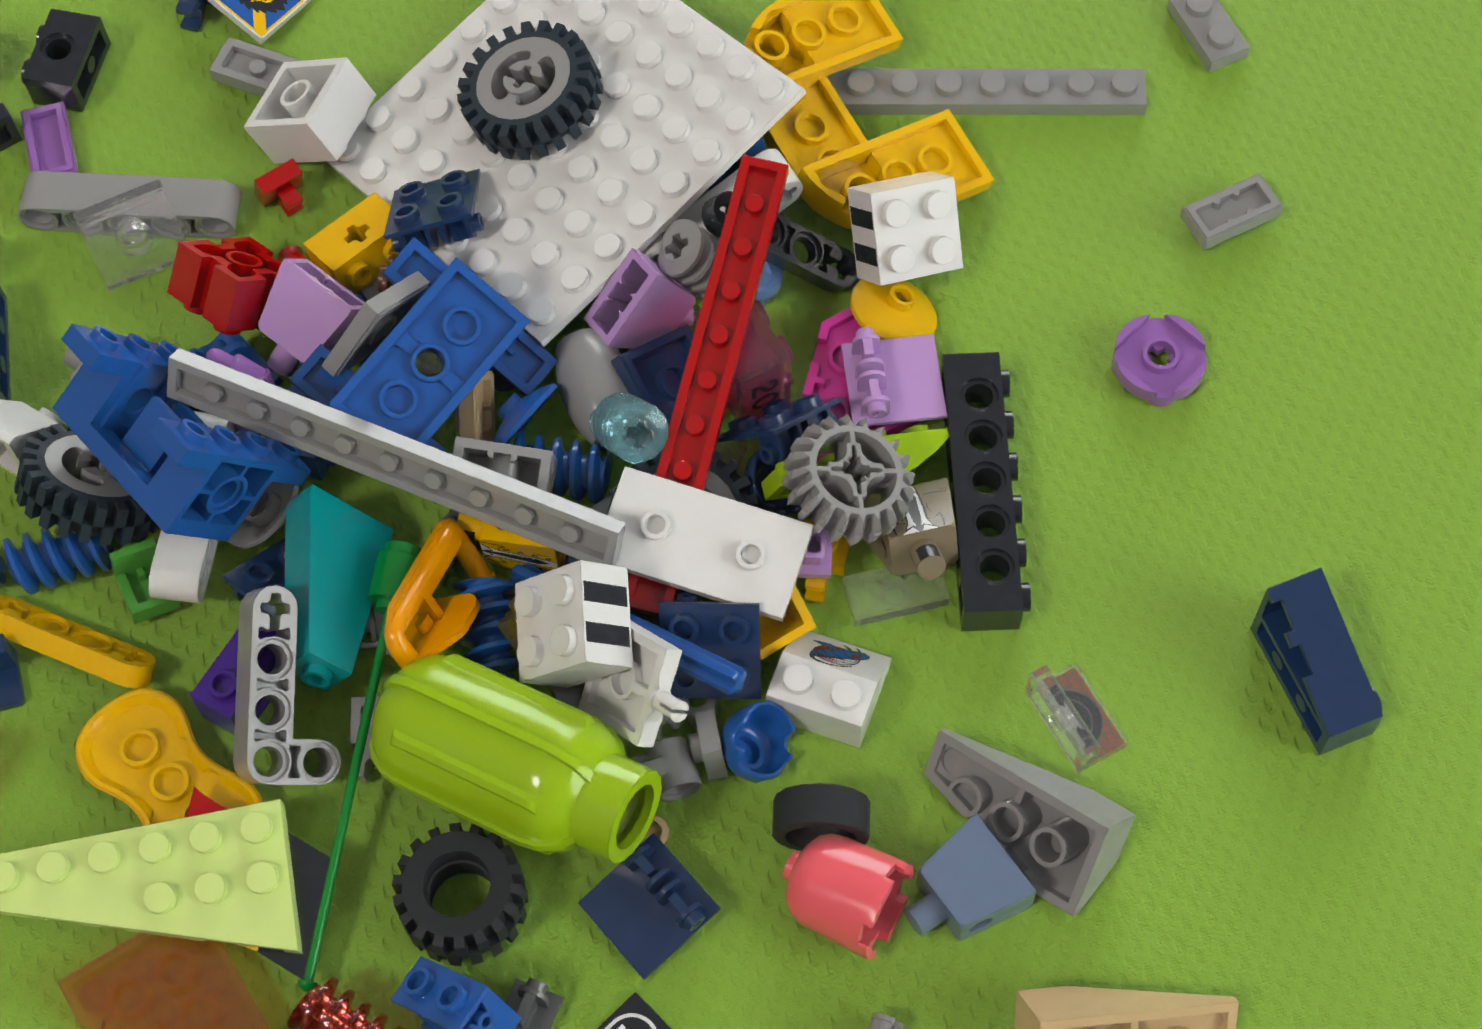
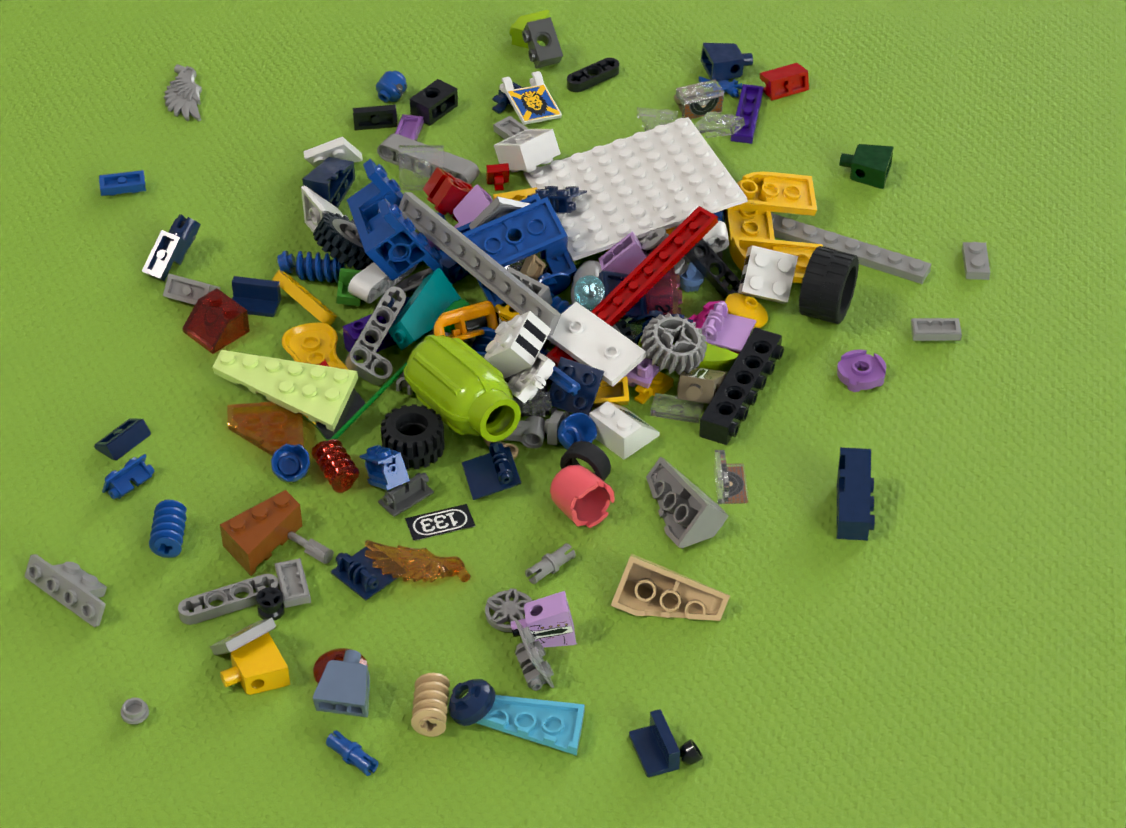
camera: 25 degrees right, 20 degrees down
(537, 61) = (626, 165): wheel -> none
(969, 884) = (637, 517): sand blue torso -> none
(1027, 208) = (828, 284): none -> black tyre

